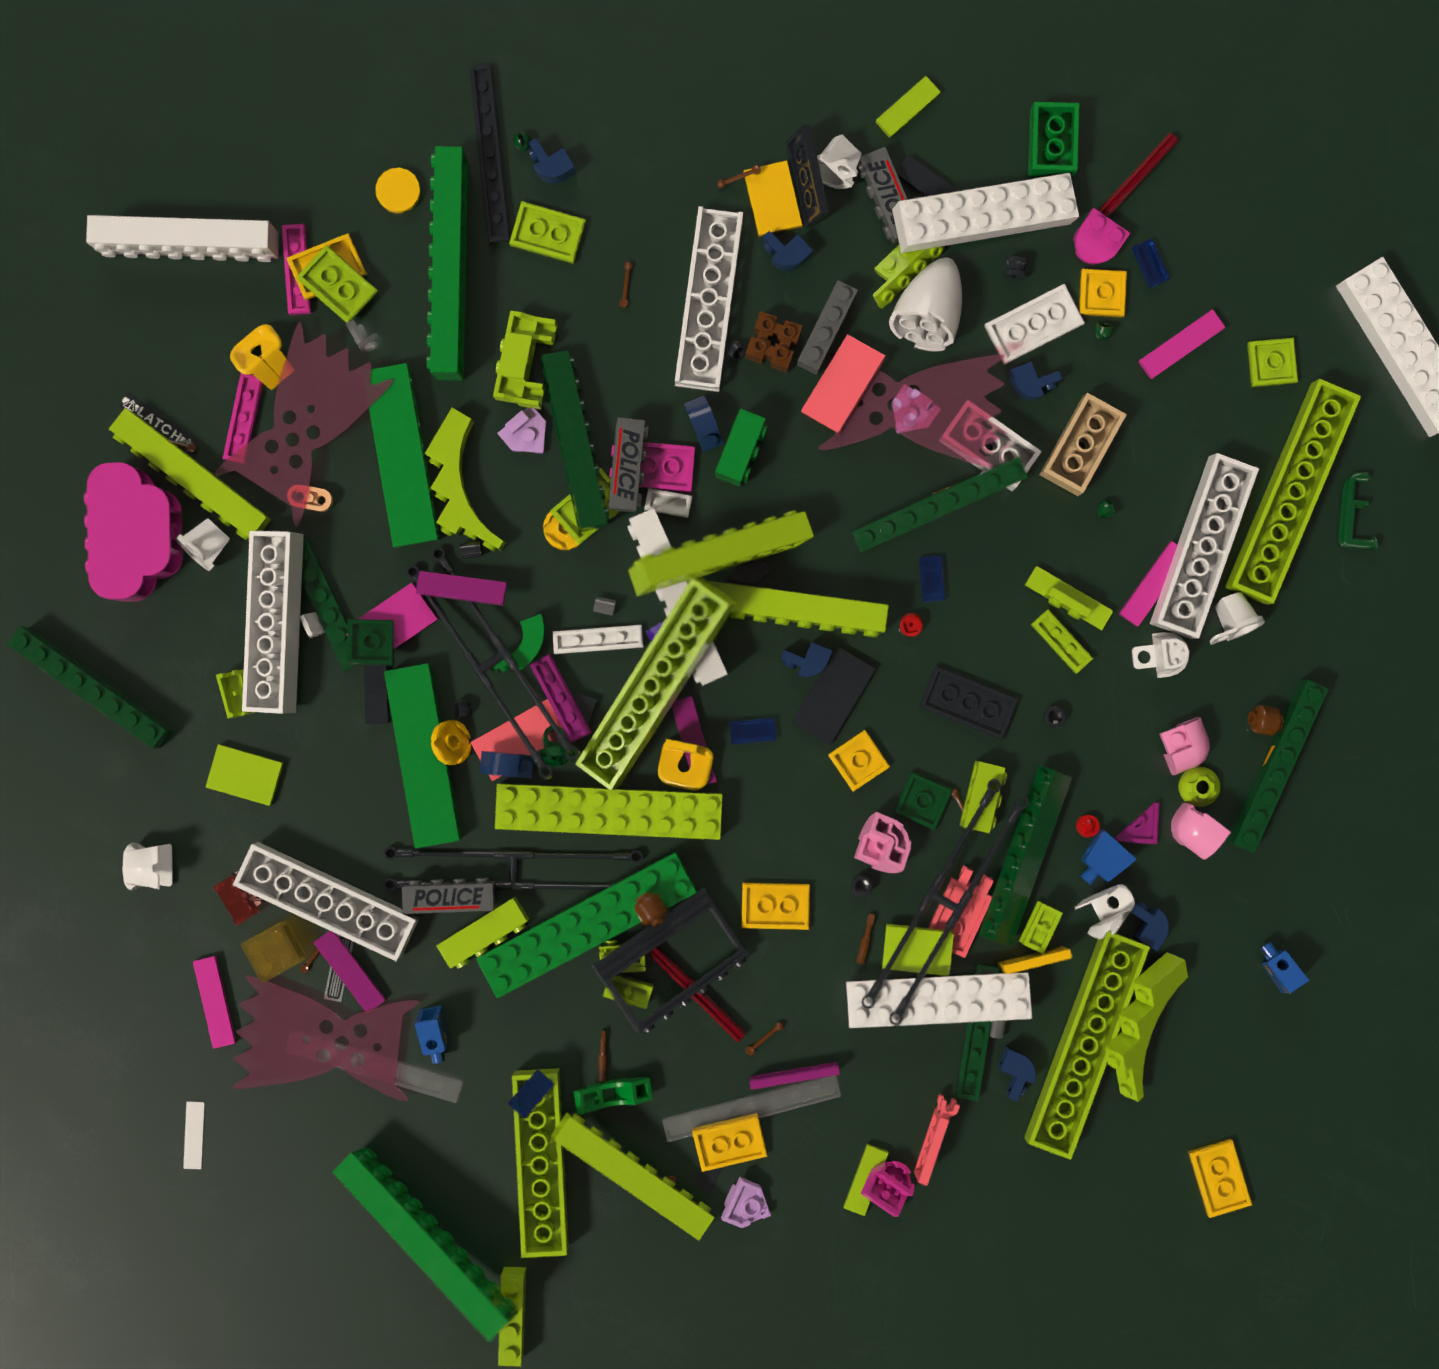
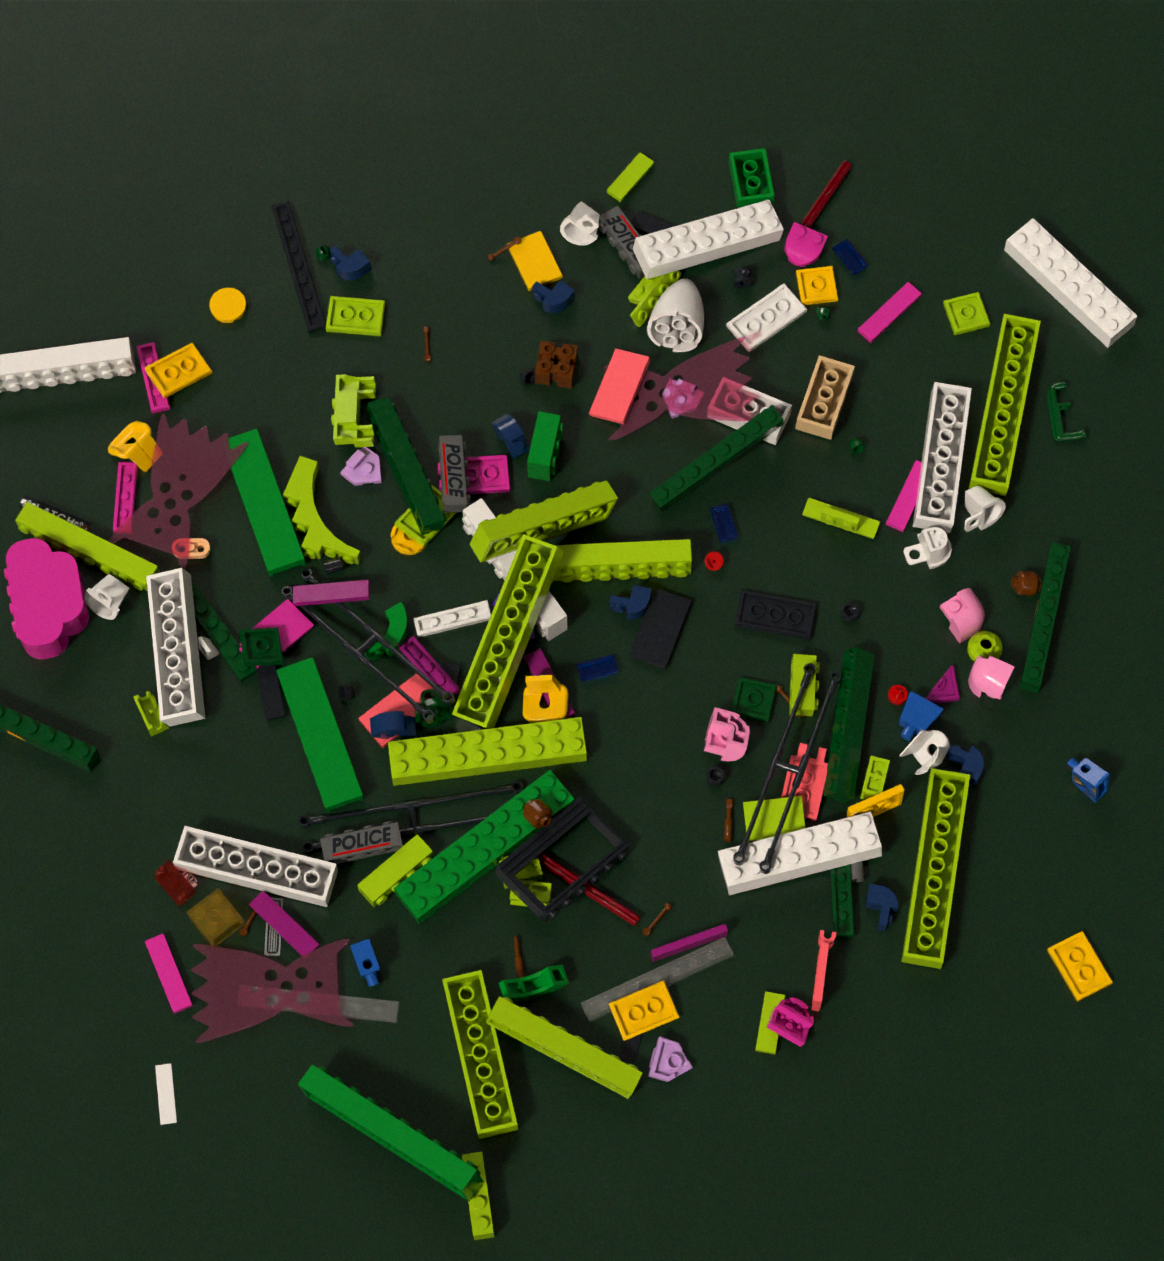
camera: 15 degrees left, 20 degrees down
(147, 866) = (95, 865): white piece -> none
(244, 775) = (167, 779): lime tile -> none
(337, 284) = (189, 380): lime tile -> none
(359, 334) = (215, 419): clear bracket -> none
(448, 263) = (278, 350): green brick -> none
(451, 742) = (342, 717): yellow tile -> none
(531, 1093) = (461, 988): clear blue tile -> none
(604, 606) = (454, 590): dark grey hinge -> none
(668, 502) = (495, 501): white tile -> none
(708, 299) = (497, 343): white tile -> none
(775, 906) = (645, 807): yellow tile -> none
(807, 176) = (559, 237): black tile -> none
(827, 327) = (597, 346): dark grey brick -> none
(858, 760) = (692, 676): yellow tile -> none
(1027, 383) = (772, 362): dark blue brick -> none
(1061, 641) = (843, 553): lime tile -> none
(1138, 1020) = (974, 838): lime arch -> none

